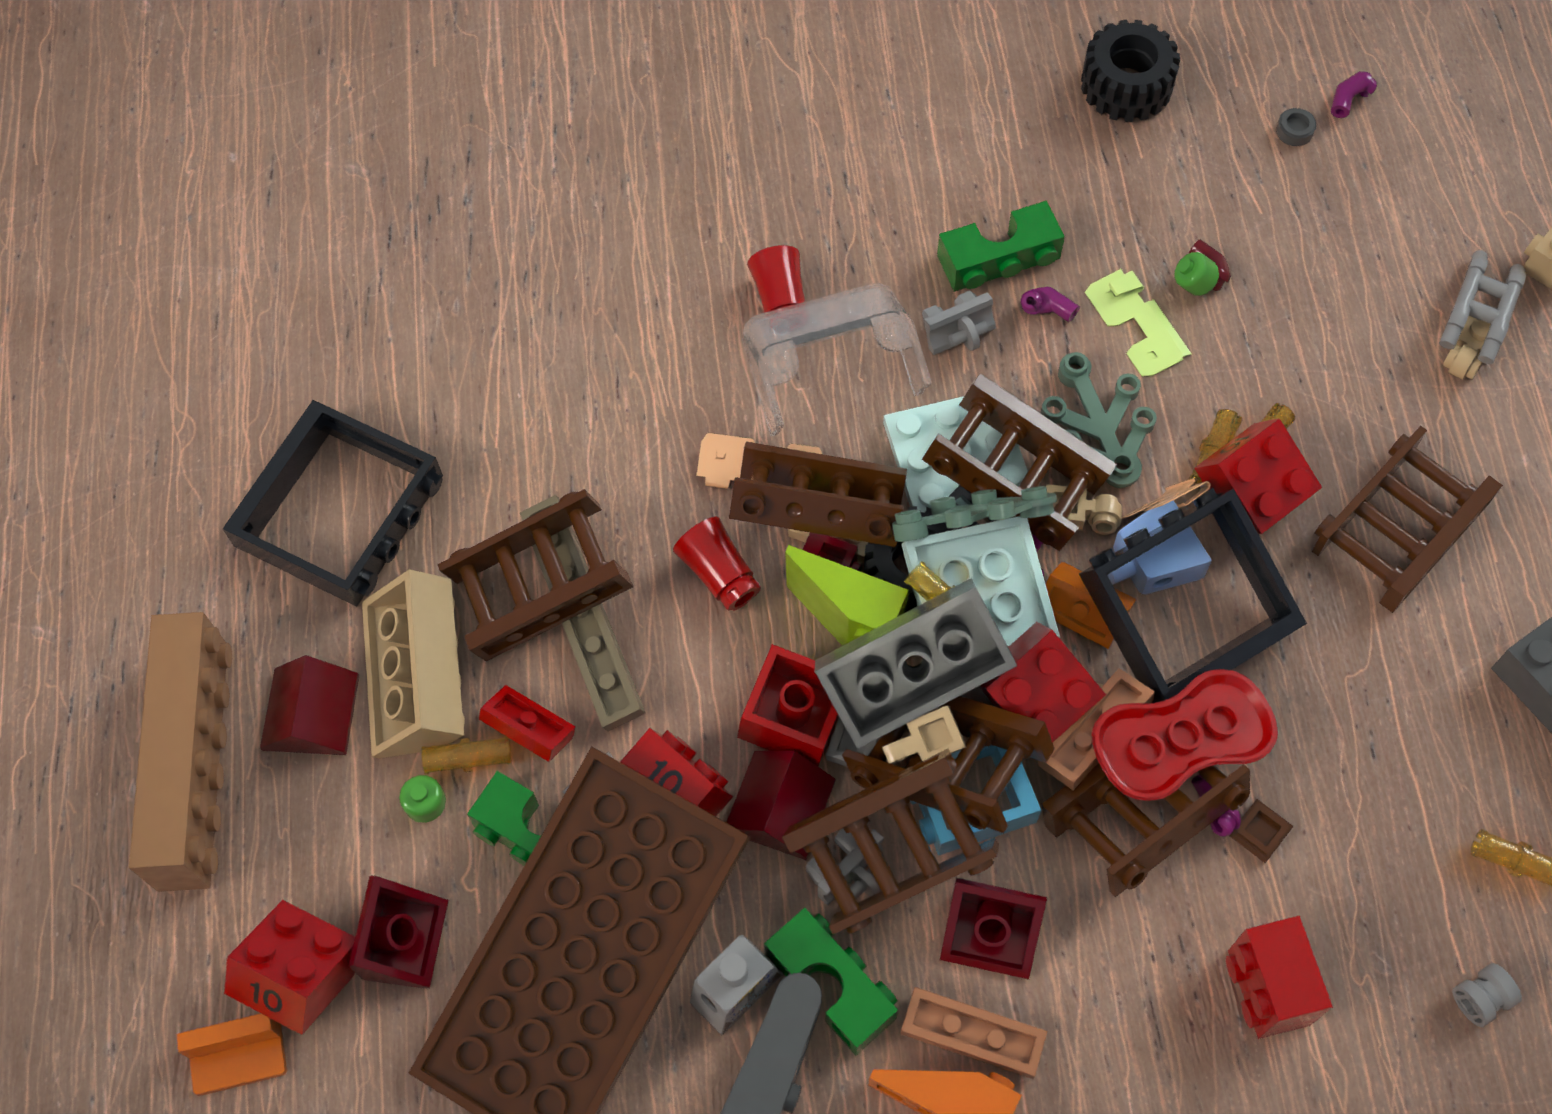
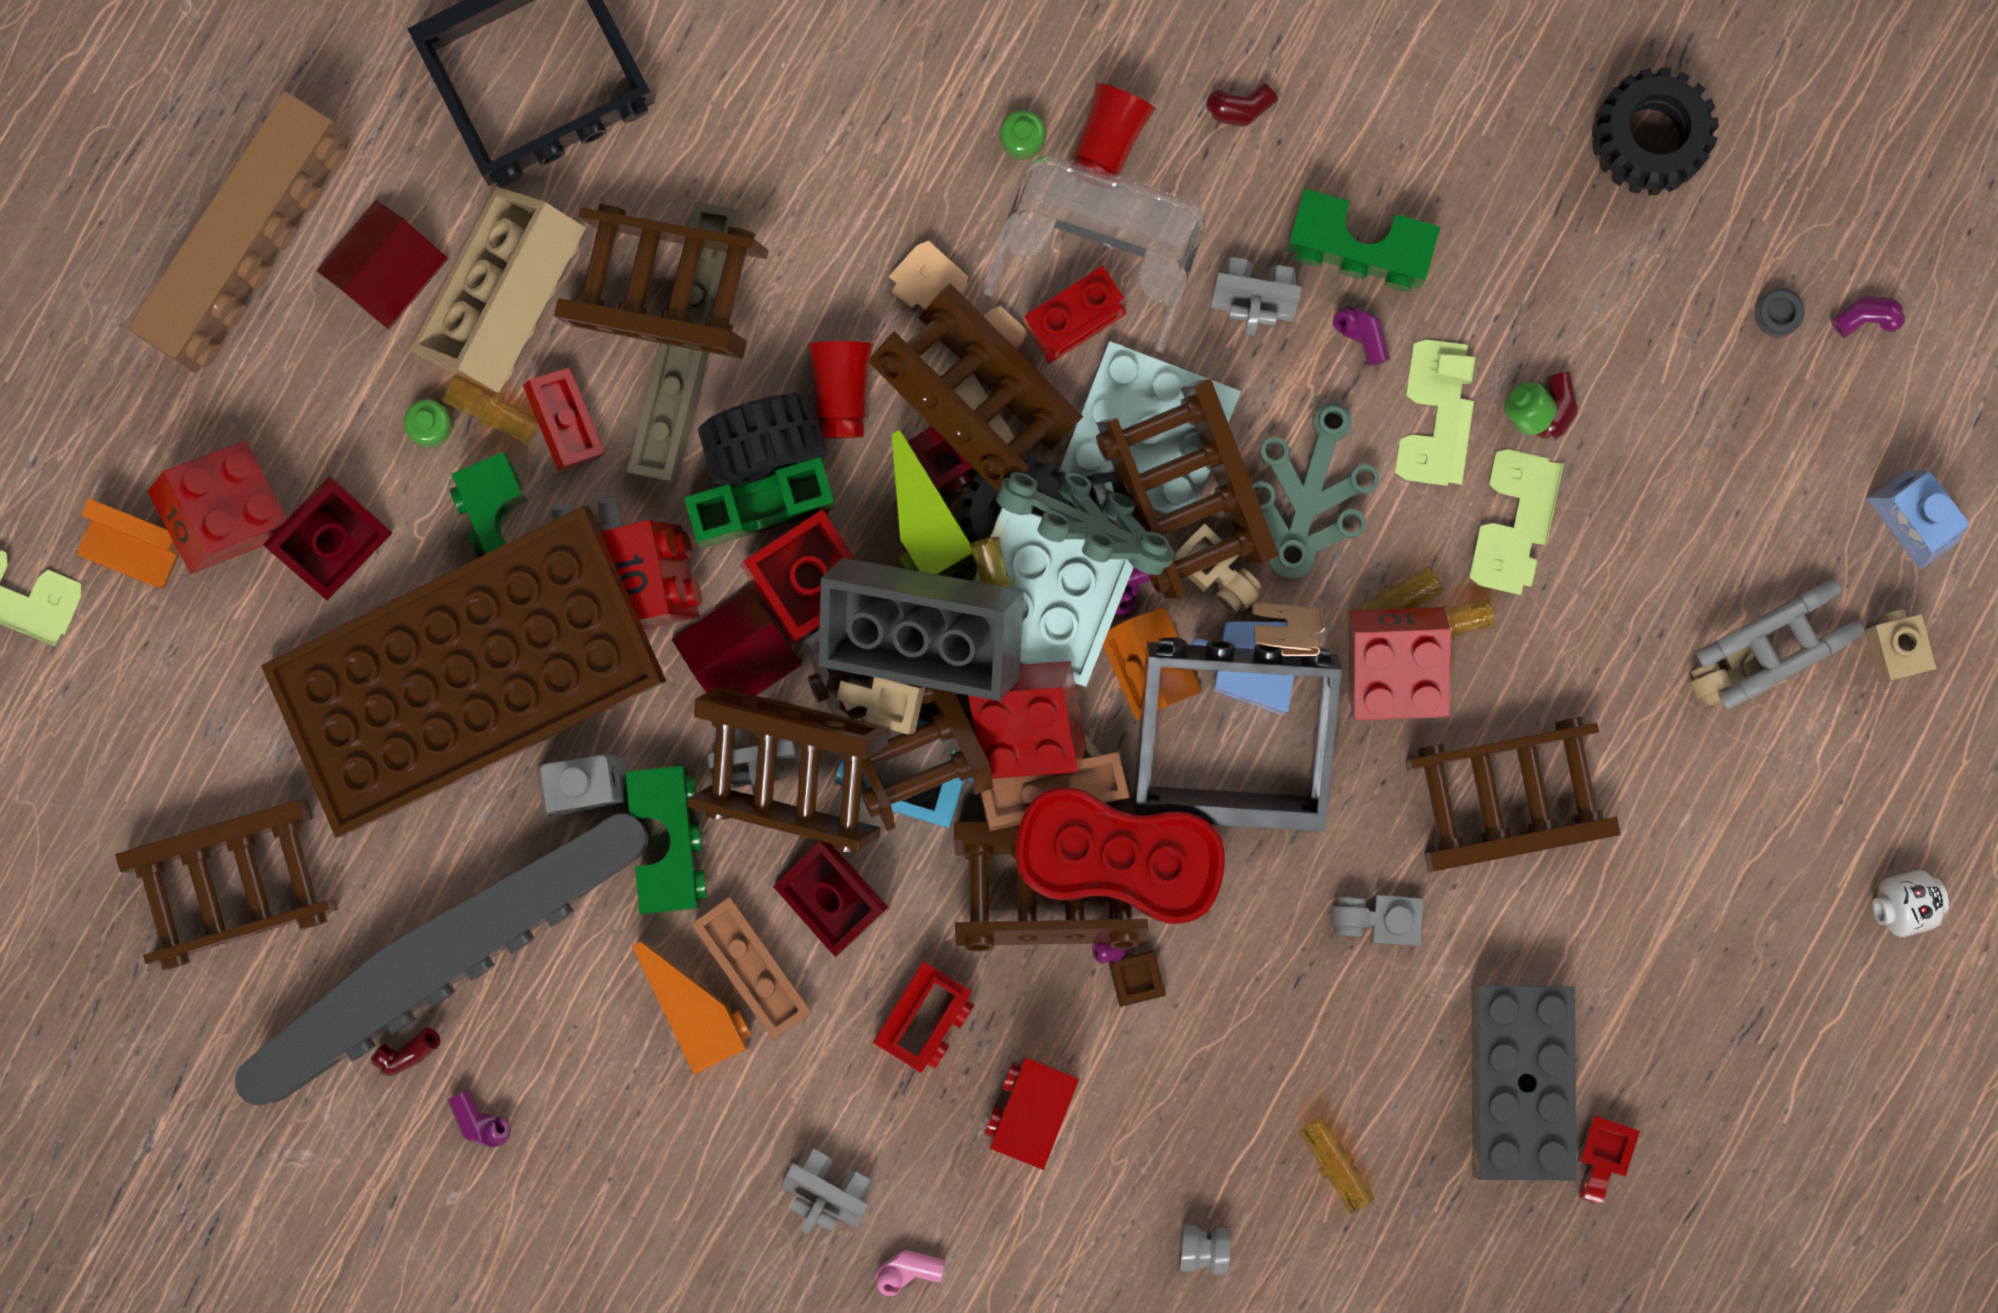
camera: 35 degrees right, 20 degrees up
(690, 629) = (760, 438): none -> black tyre
(704, 701) = (761, 505): none -> green arch
(720, 330) = (1022, 134): none -> bright green piece
(847, 411) = (1075, 314): none -> red window
(853, 226) = (1240, 110): none -> dark red arm
(1117, 973) = (908, 1007): none -> red window
(1256, 373) = (1502, 551): none -> yellowish green piece
(1397, 658) = (1392, 919): none -> light grey plate
(1495, 172) = (1920, 515): none -> light blue torso

